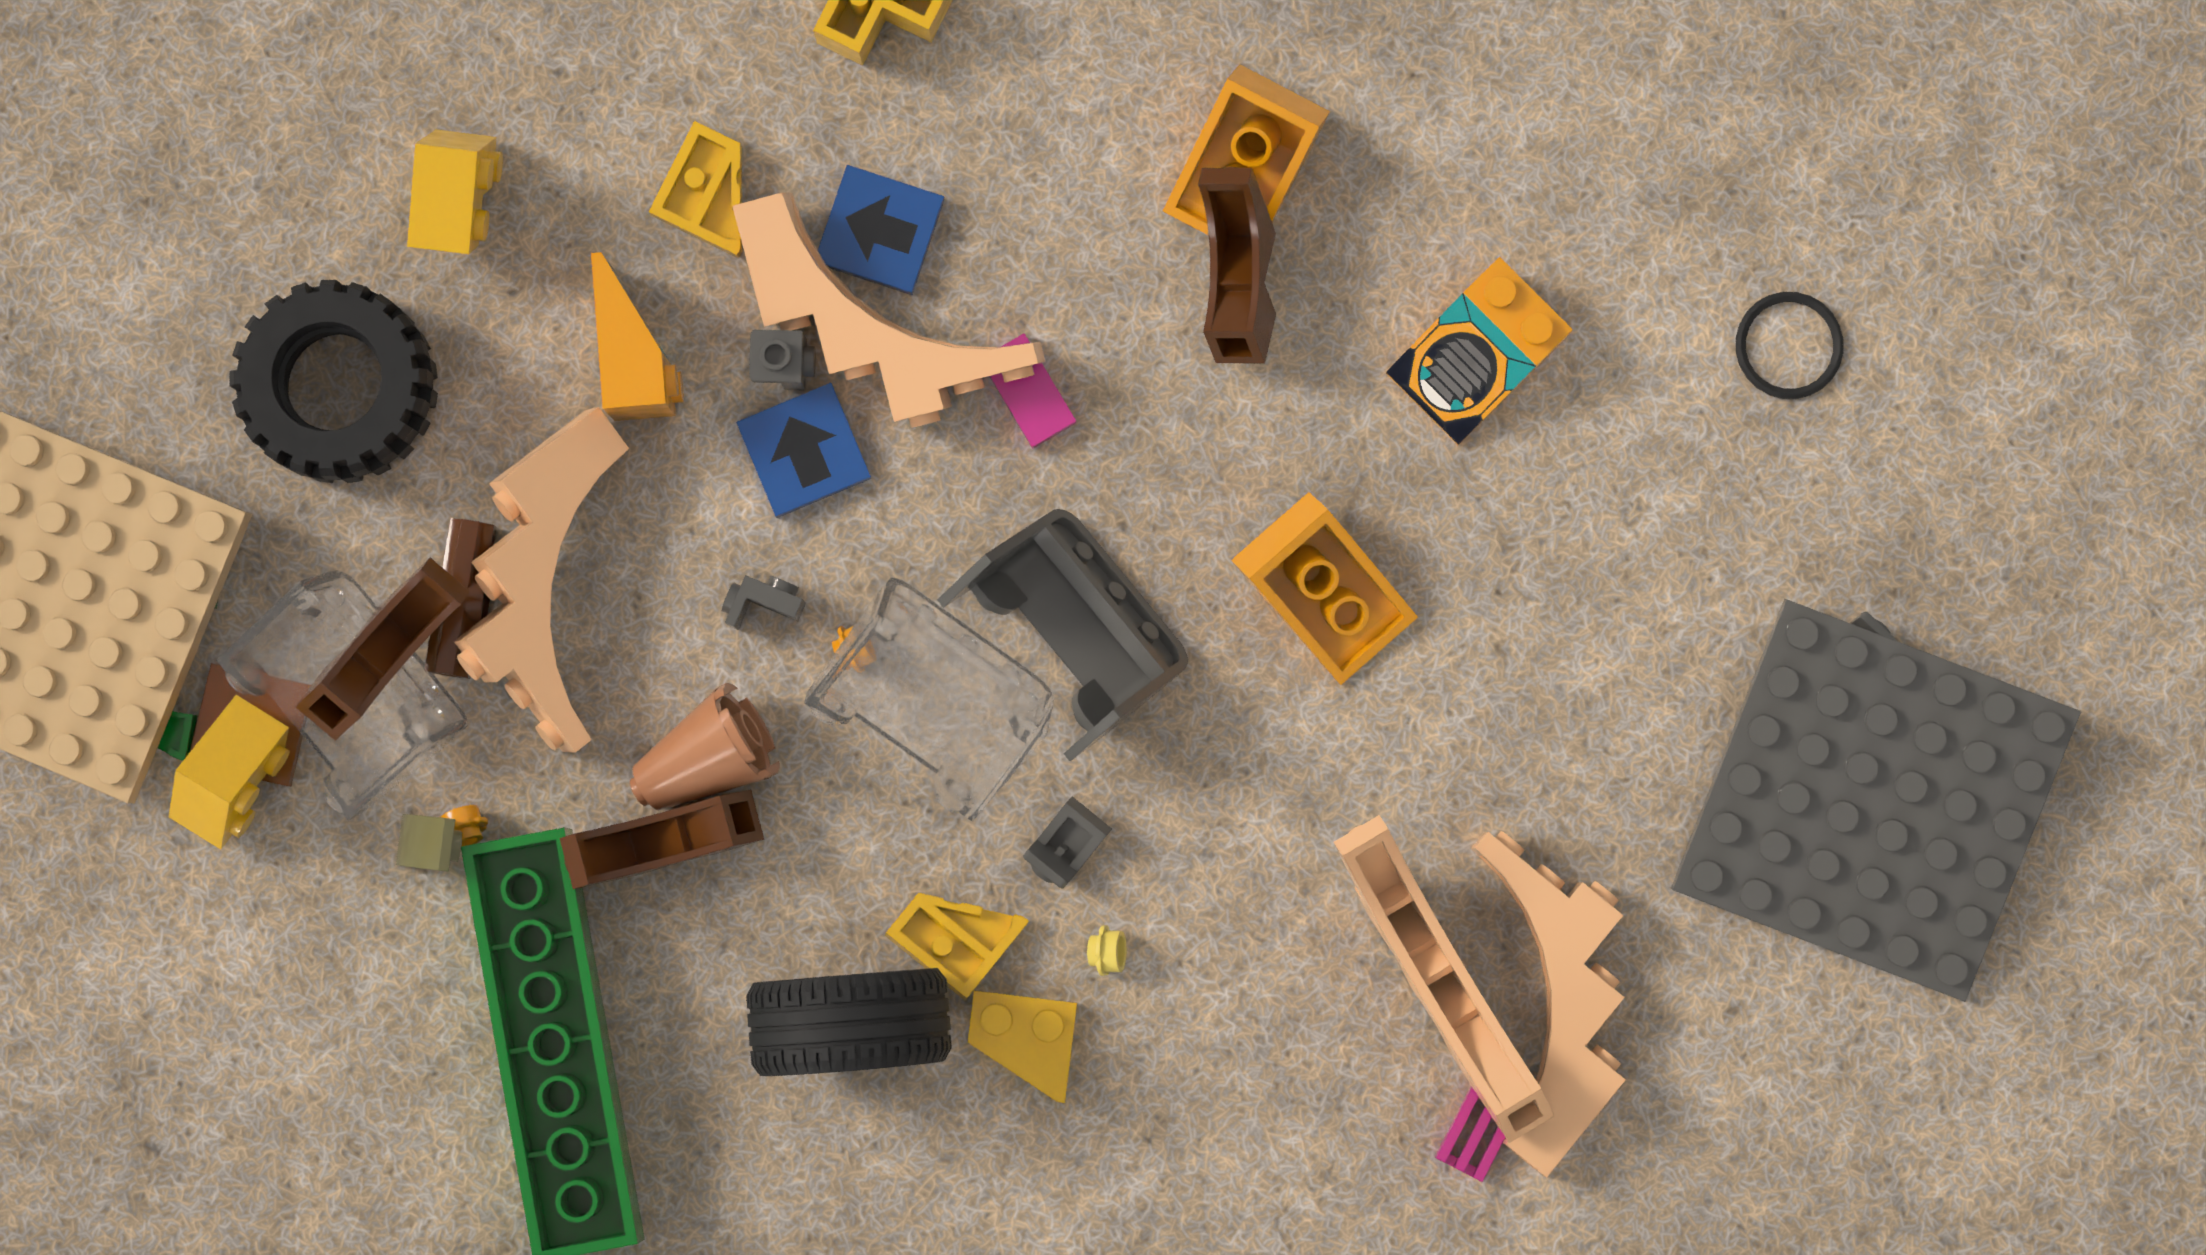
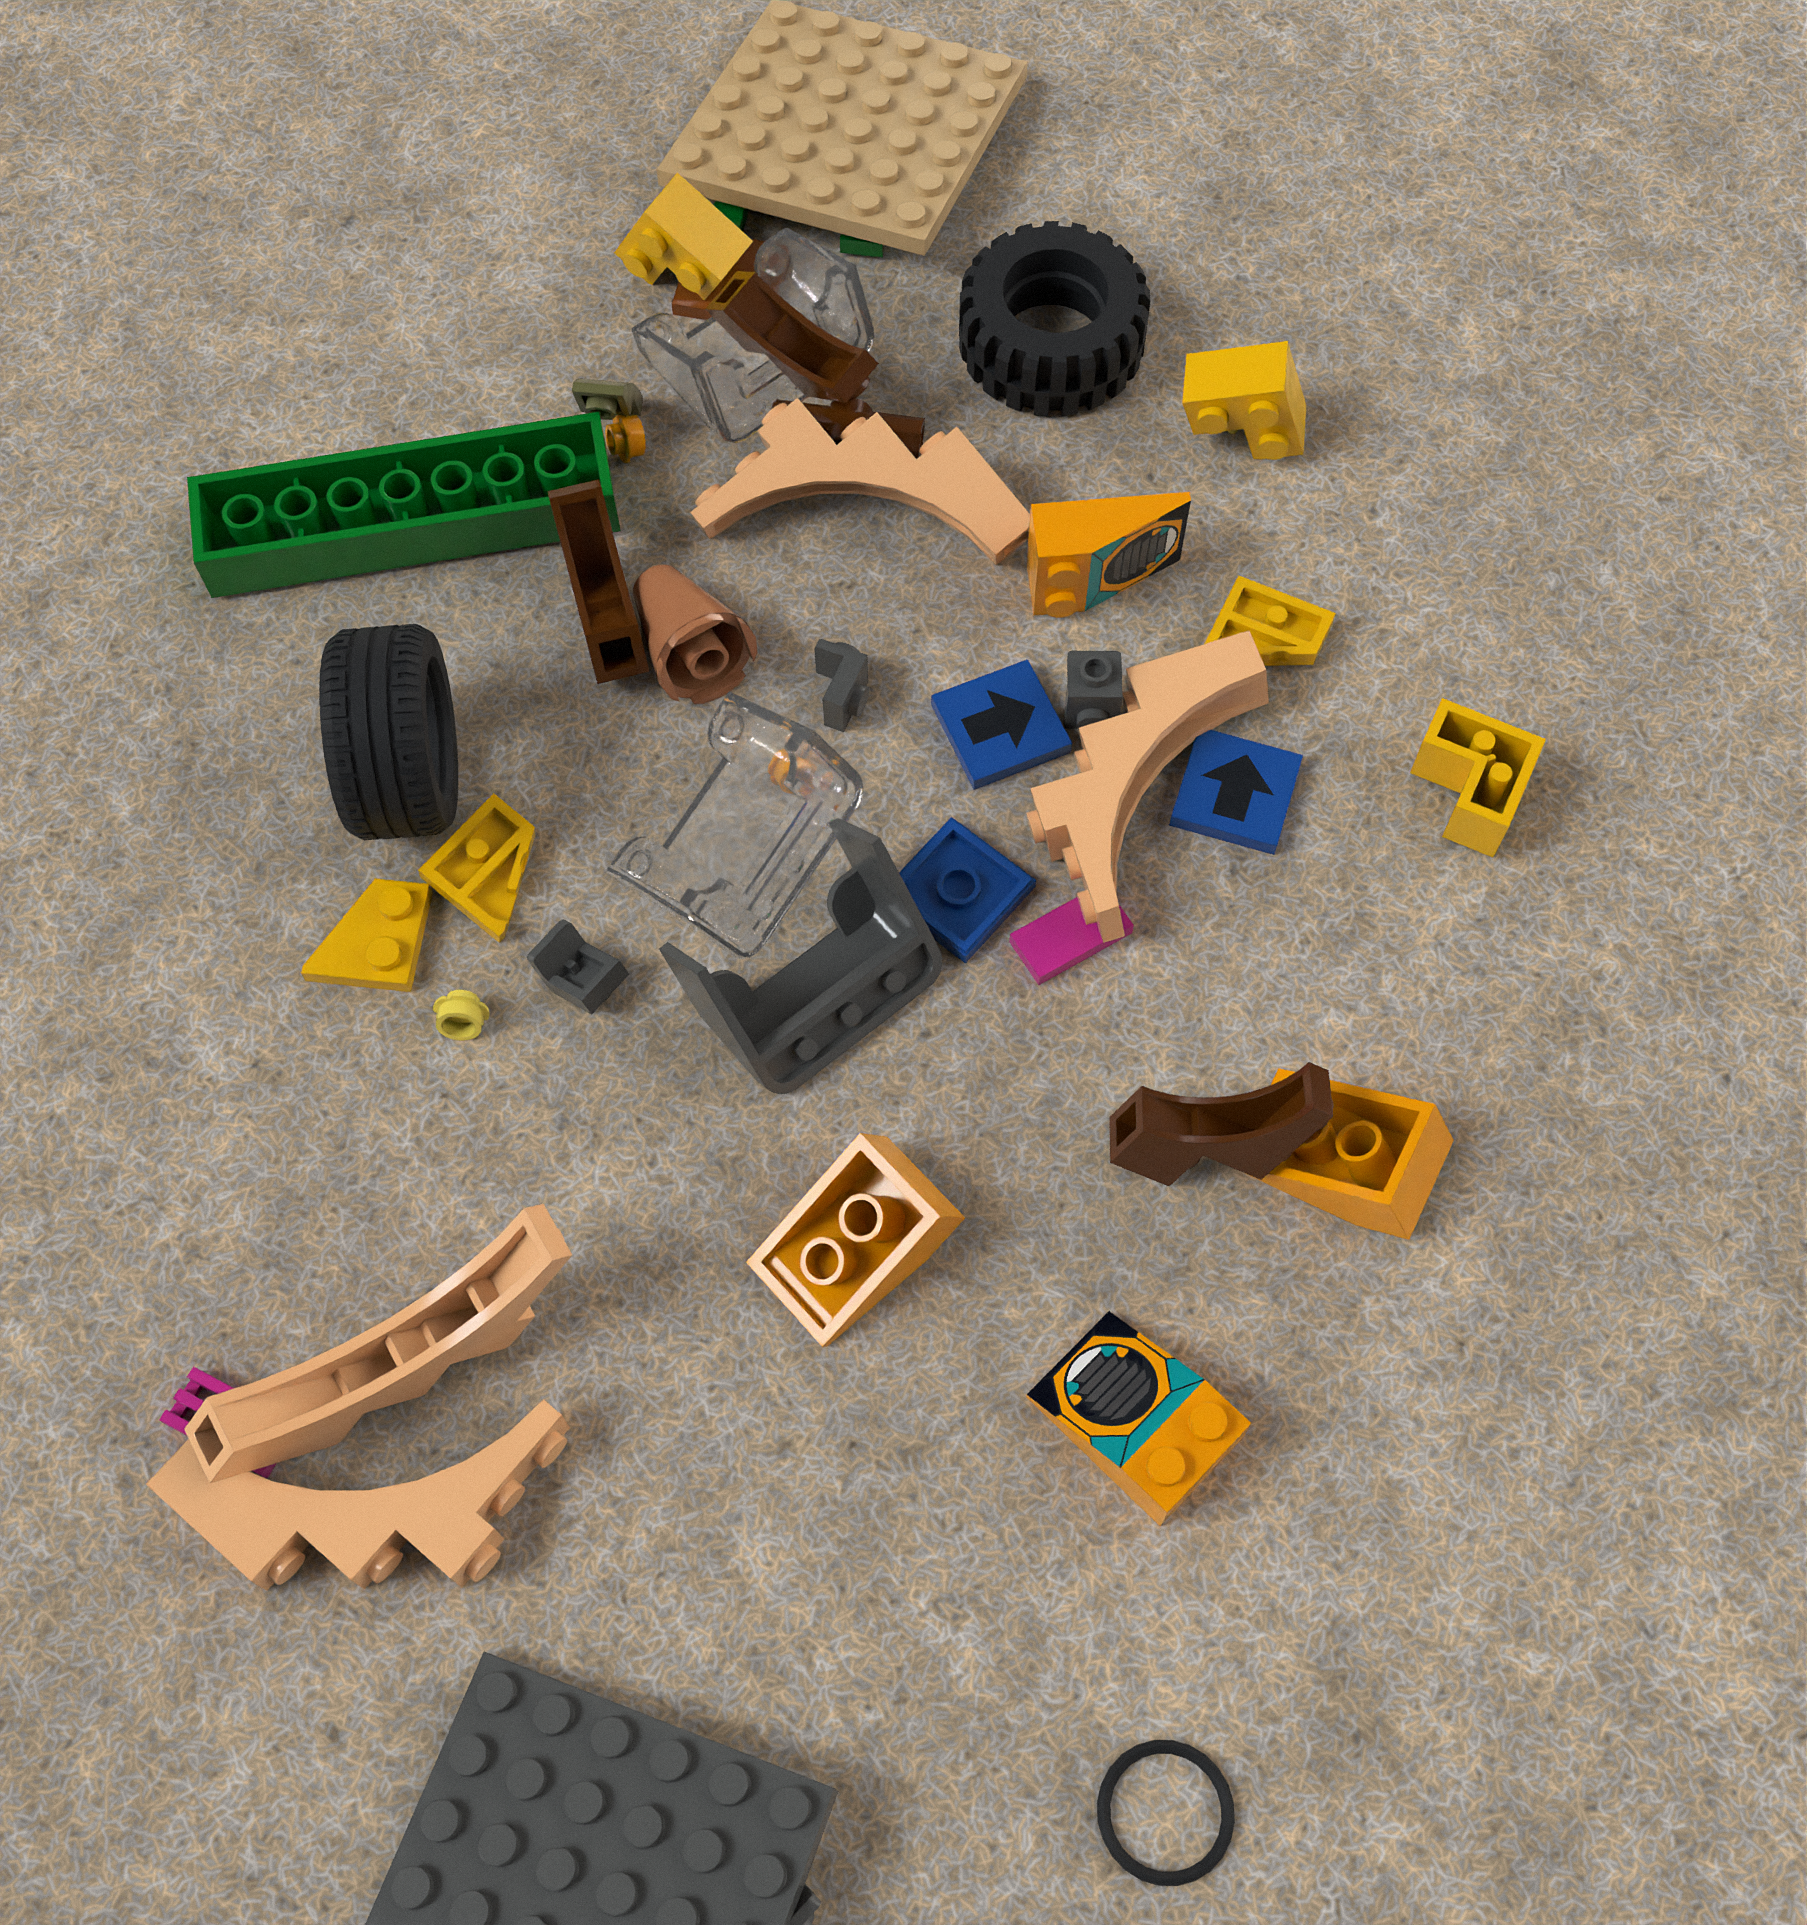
camera: 90 degrees right, 20 degrees down
(980, 492) = (964, 888): none -> blue tile

